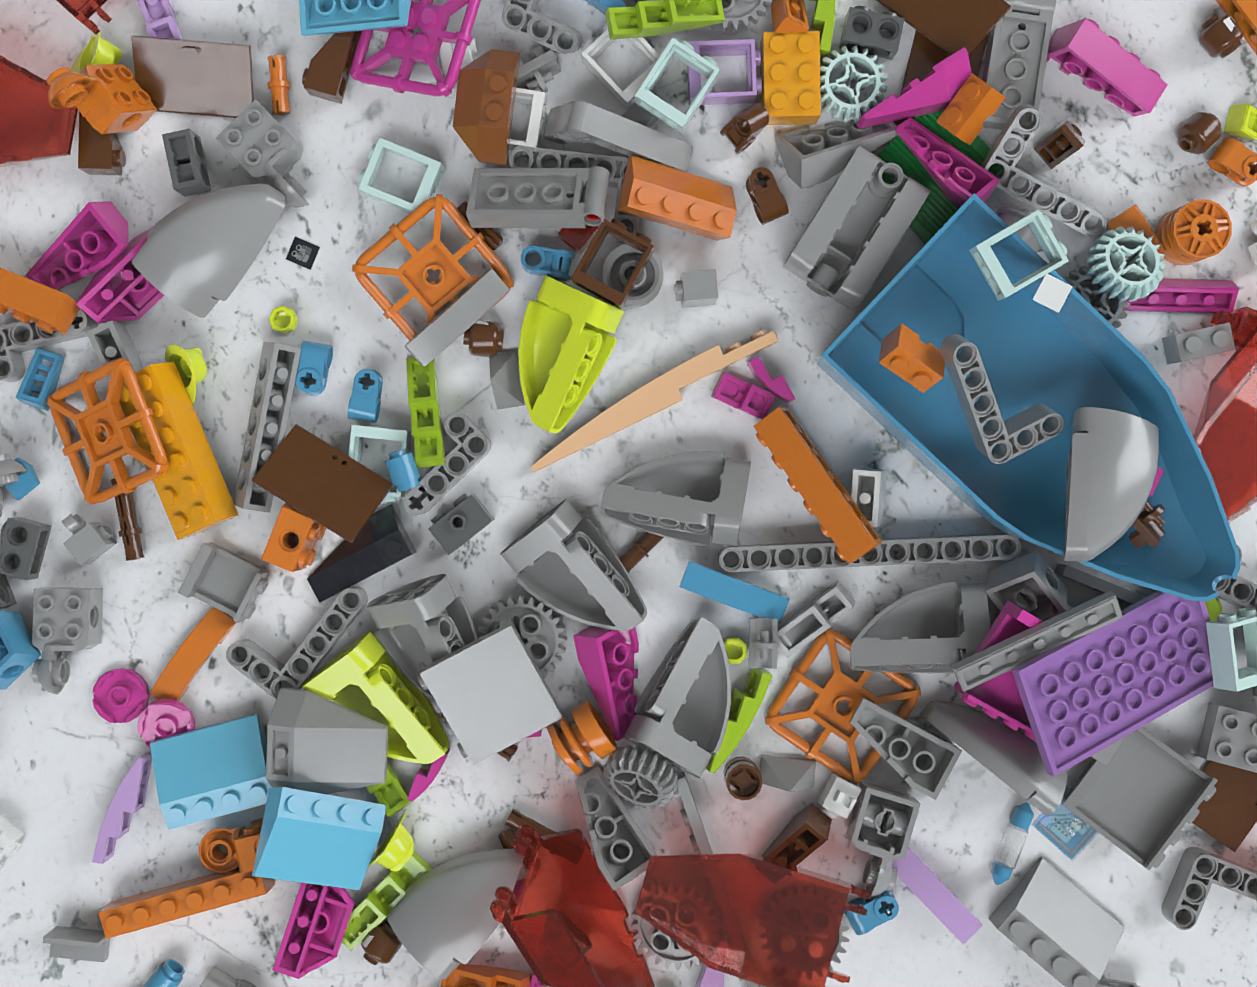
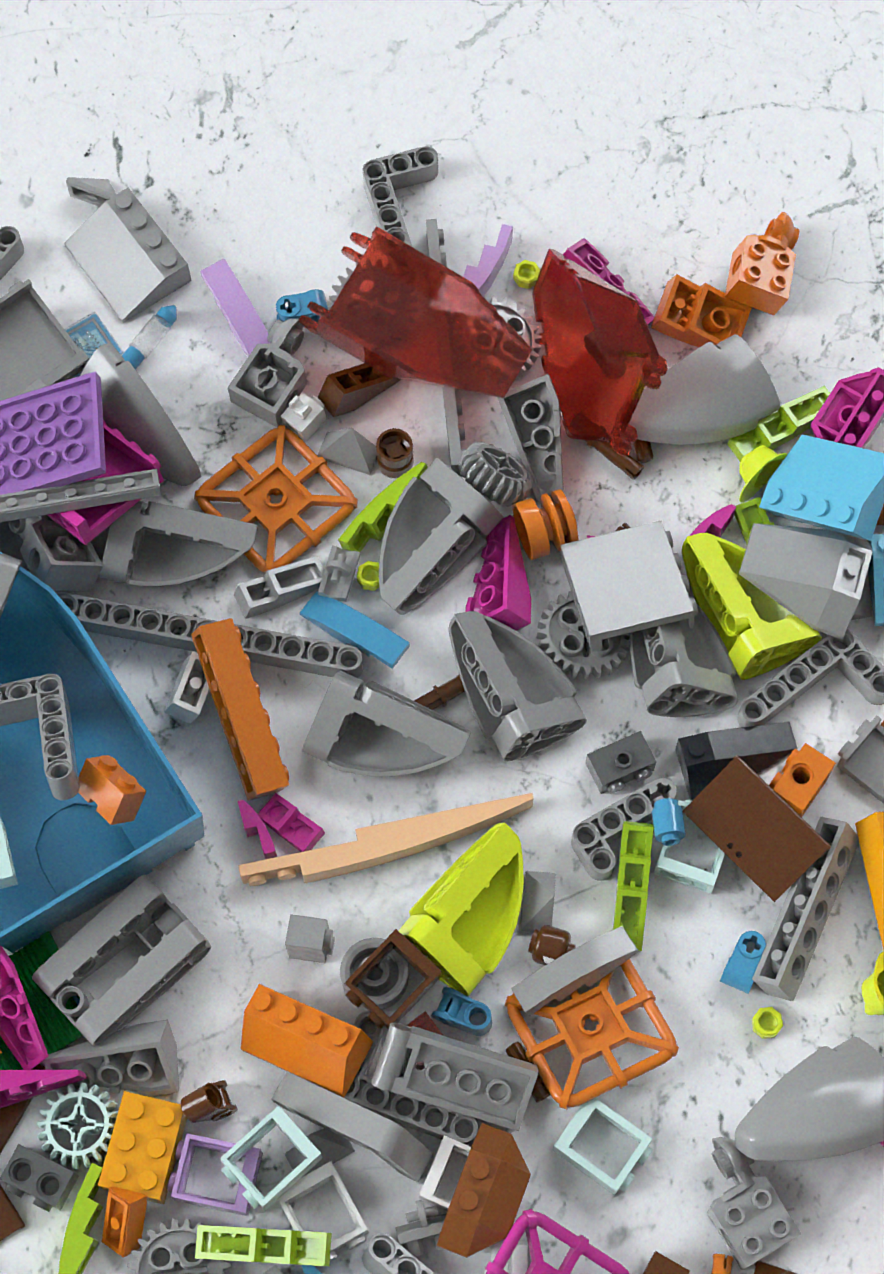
camera: 165 degrees left, 20 degrees down
(186, 162) = (840, 1219): dark grey brick -> none
(302, 253) = (732, 1094): black sticker -> none
(365, 402) = (694, 914): dark azure piece -> none
(381, 944) = (792, 383): reddish brown head -> none
(766, 199) = (207, 1022): reddish brown piece -> none
(912, 751) = (223, 443): light grey wedge -> none

